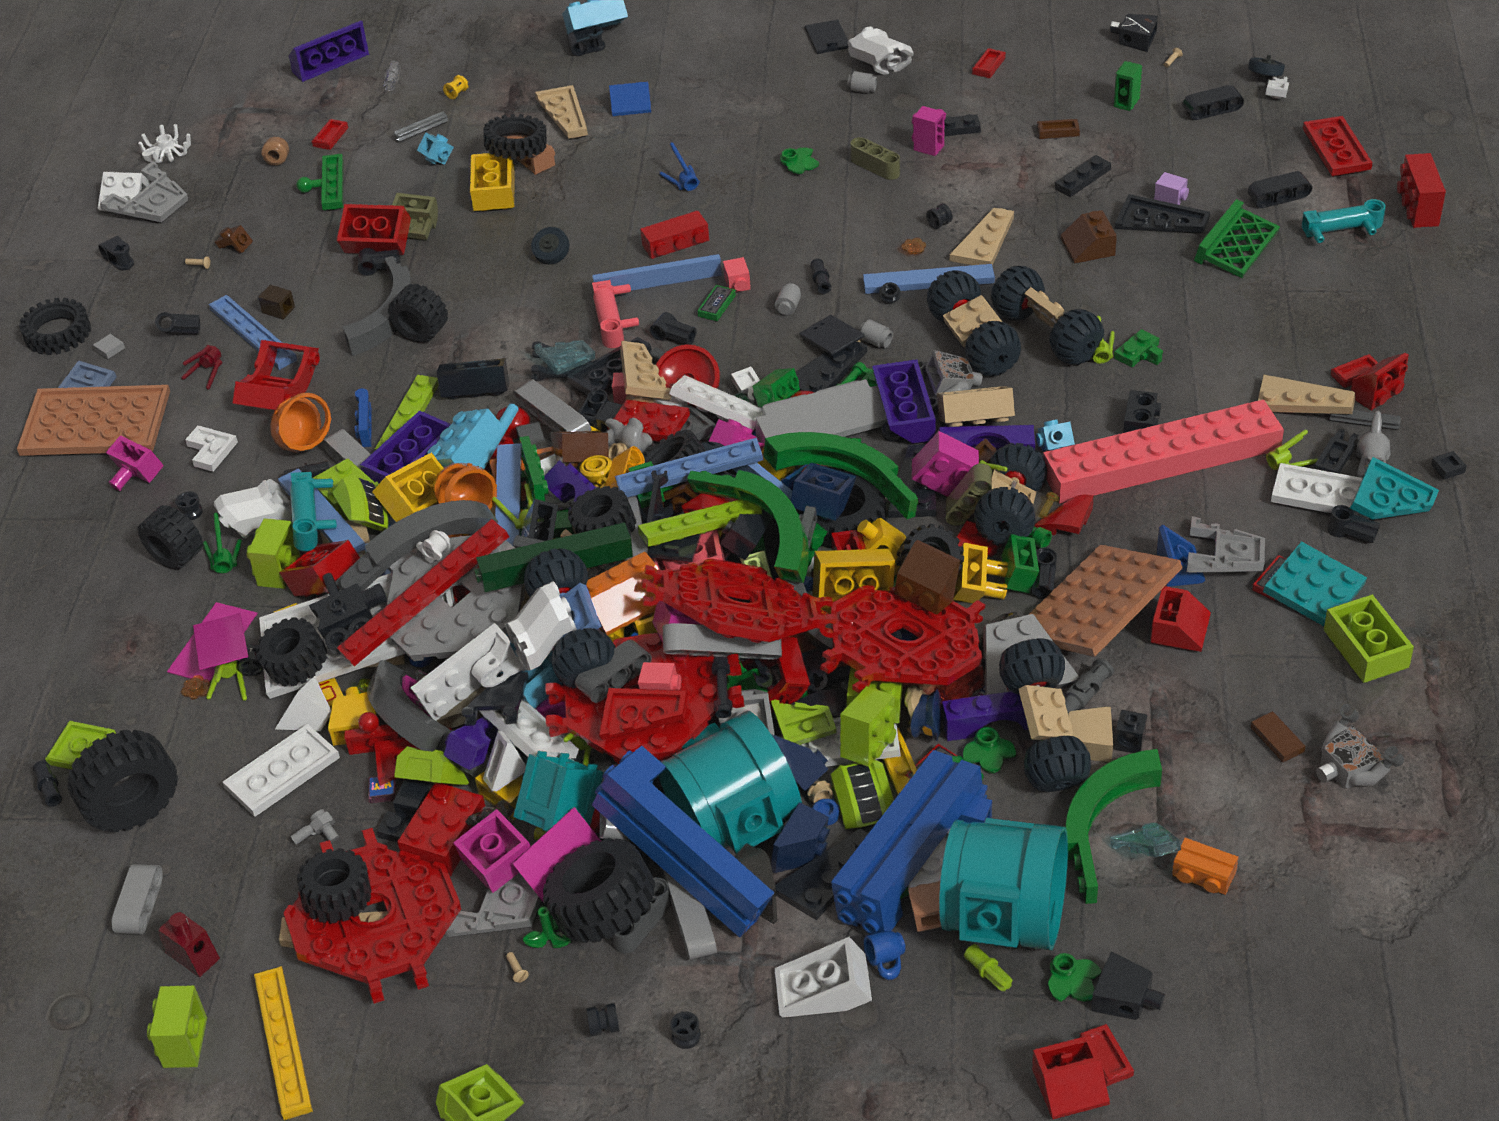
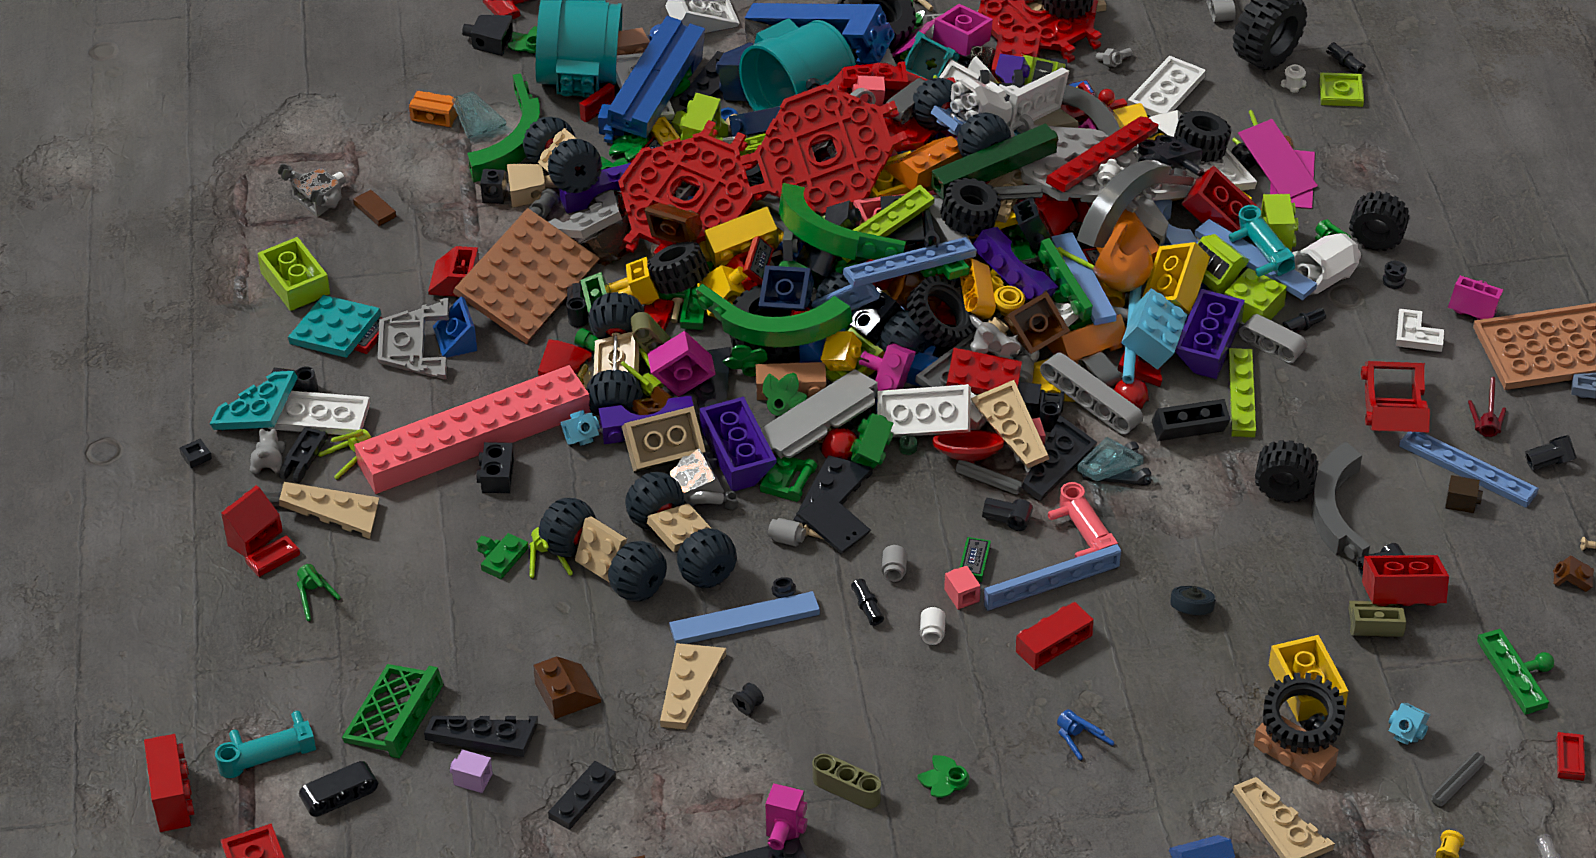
camera: 165 degrees right, 0 degrees up
(298, 423) = (1334, 338): orange piece -> none
(363, 418) = (1281, 376): blue plate -> none
(744, 381) = (906, 461): white plate -> none
(772, 251) = (932, 625): none -> white brick
(844, 534) = (758, 256): none -> tile
(914, 246) = (770, 661): clear orange plant -> none
(1317, 340) = (311, 579): none -> green plant

